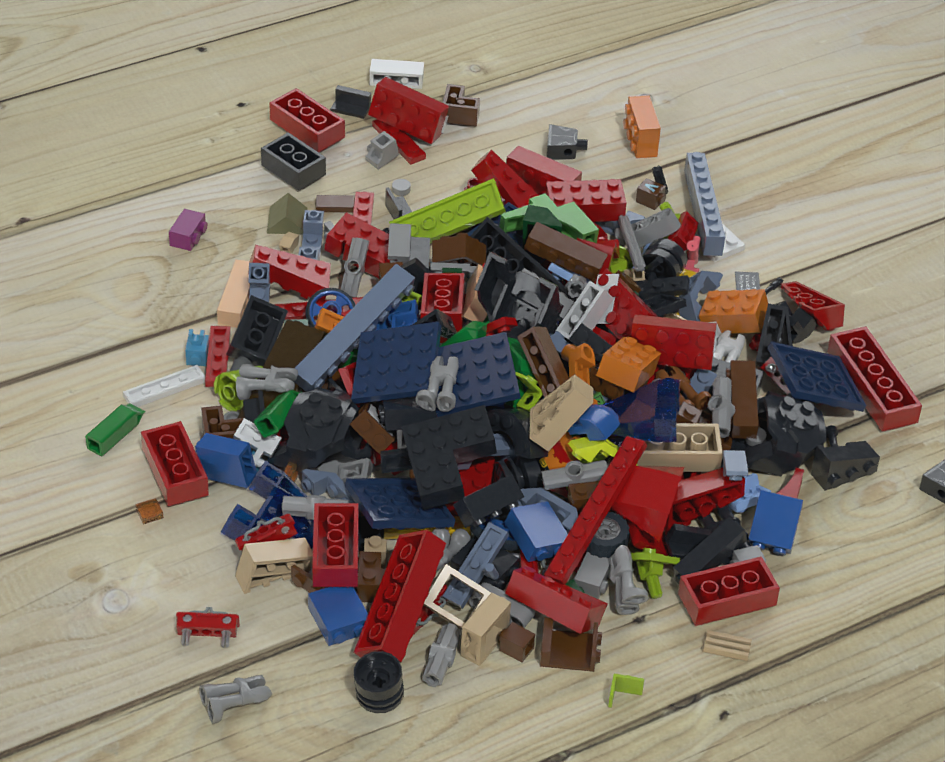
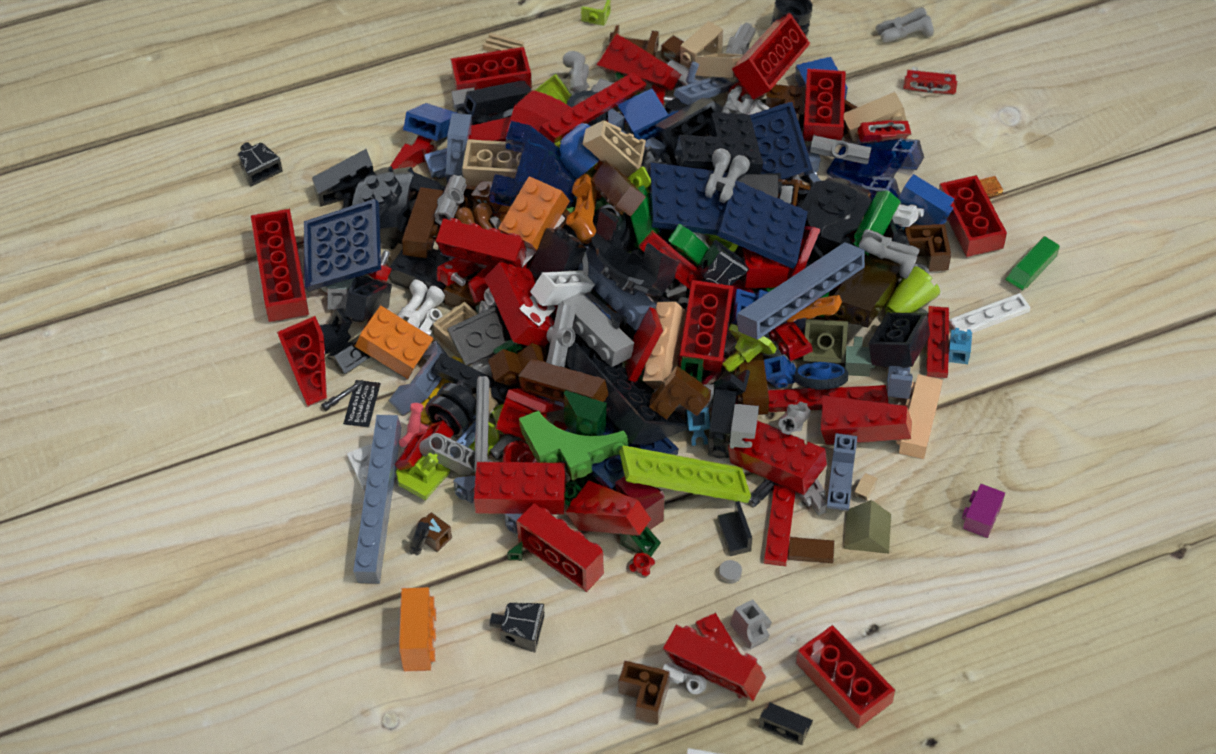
camera: 170 degrees left, 10 degrees up
(293, 161) = (862, 603): black brick -> none

